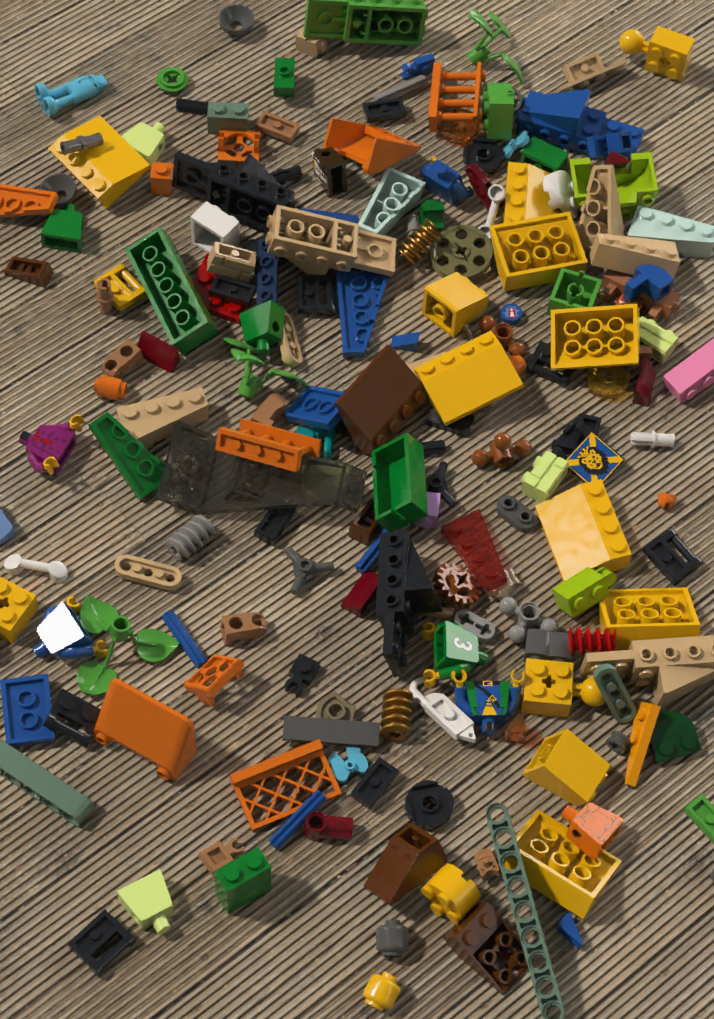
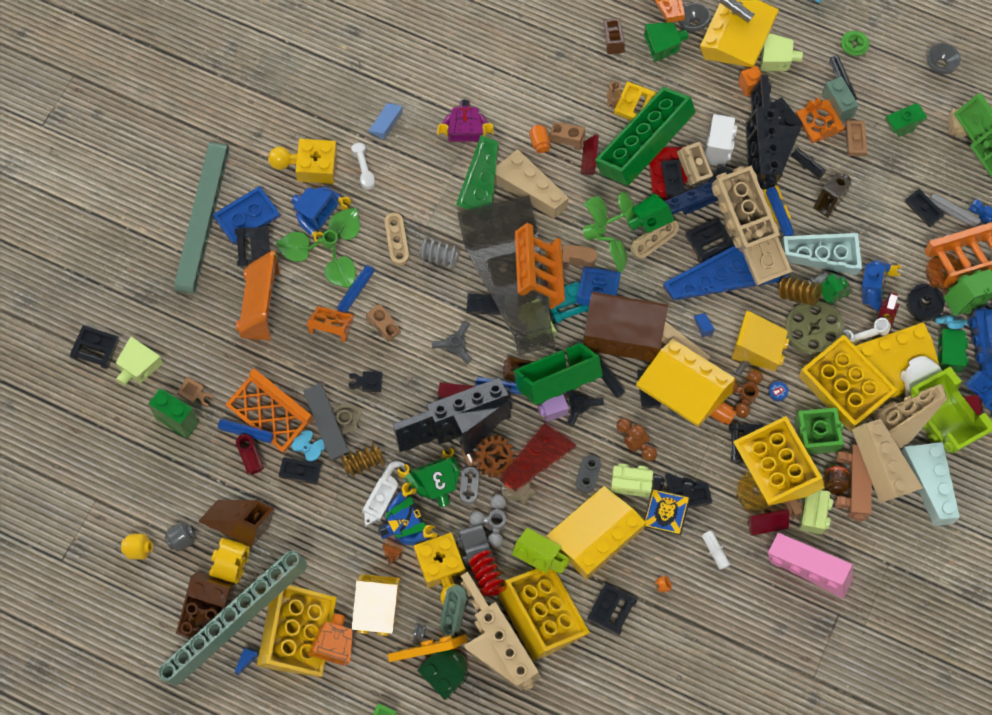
camera: 65 degrees right, 10 degrees up
(368, 145) = (878, 212): orange windscreen -> none
(436, 794) = (300, 528): black plate -> none
(650, 280) = (864, 479): blue brick -> none

